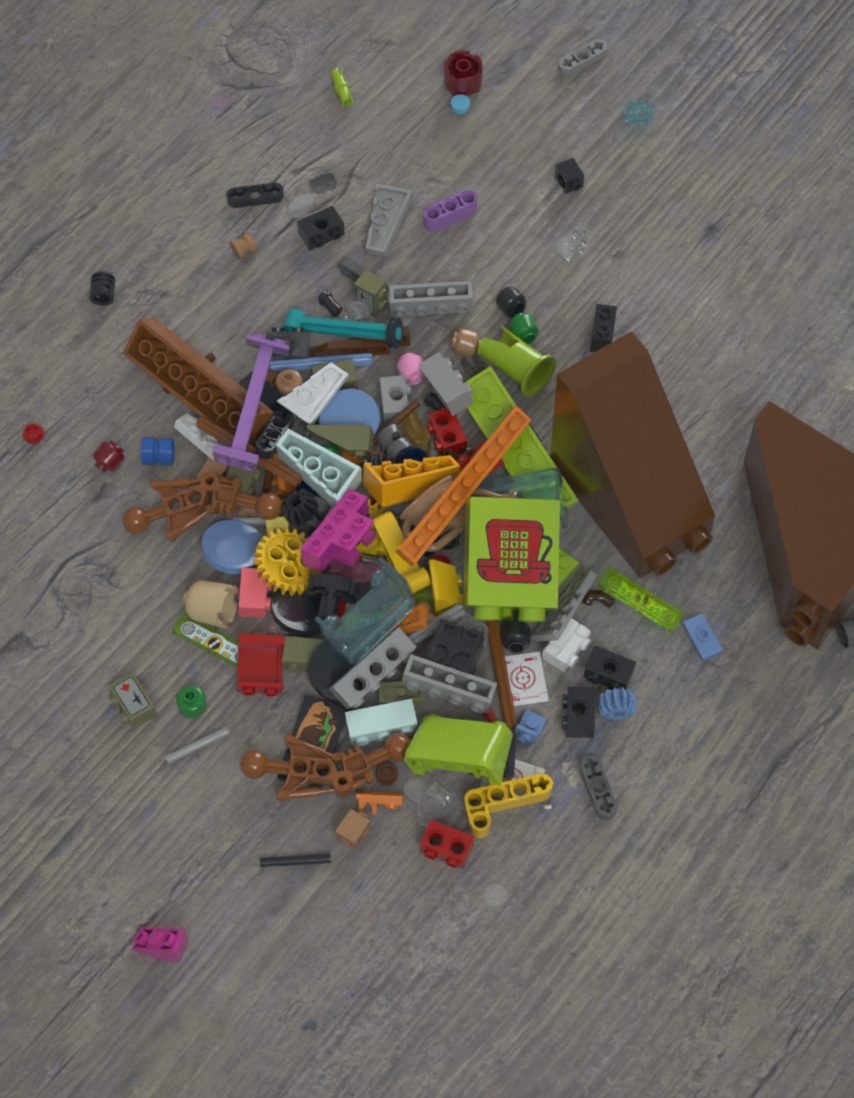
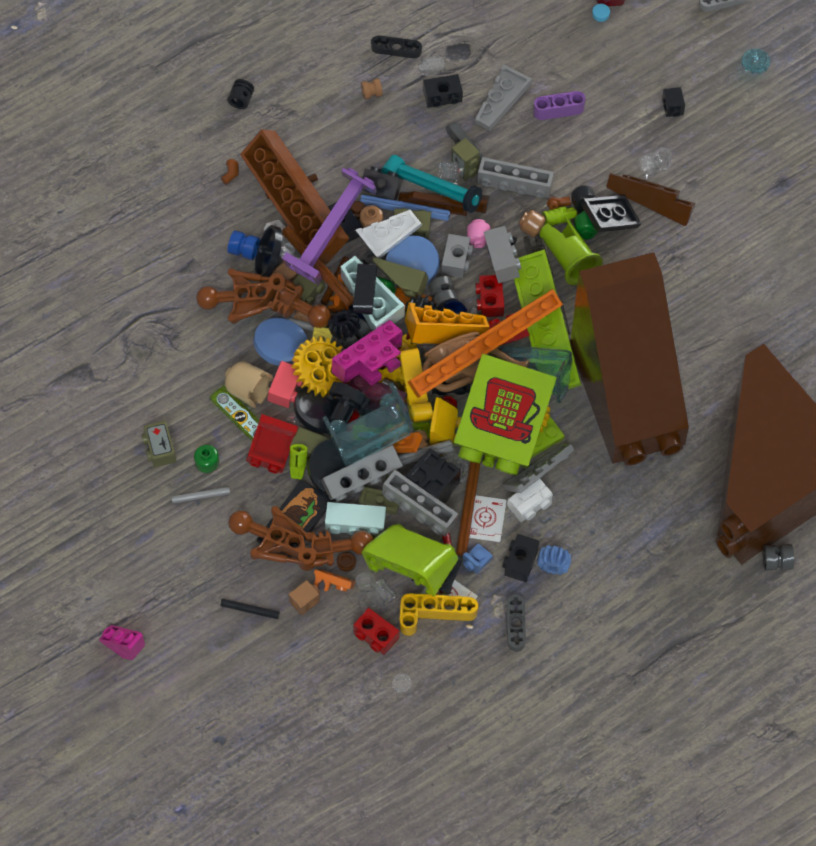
camera: 15 degrees right, 0 degrees up
(33, 433) = (146, 202): red plate -> none
(108, 456) = (202, 238): dark red head -> none
(119, 375) = (233, 171): none -> dark orange arm
(189, 450) = (268, 251): none -> black piece
(275, 432) = (342, 254): black beam -> none
(298, 678) = (298, 461): none -> lime hinge
(312, 462) = (364, 289): none -> black beam
(330, 303) = (429, 159): black pin -> none
(400, 417) = (456, 271): reddish brown bar -> none
(417, 432) = (465, 288): clear yellow piece -> none
(434, 402) = (487, 265): black pin -> none
(448, 452) = (489, 316): dark brown arm -> none
(482, 314) = (554, 203): none -> dark orange arm
(491, 326) = (559, 215): none -> lime hinge
(516, 636) = (490, 481): black head -> none
(546, 309) = (610, 213): none -> black plate
(583, 280) = (652, 196): none -> reddish brown wedge
(598, 595) = (572, 468): dark brown arm -> none
(603, 326) = (656, 240): black brick -> none
(603, 659) = (555, 521): black brick -> none
(641, 600) = (606, 481): clear neon green tile -> none
(702, 637) = (646, 526): medium blue plate -> none

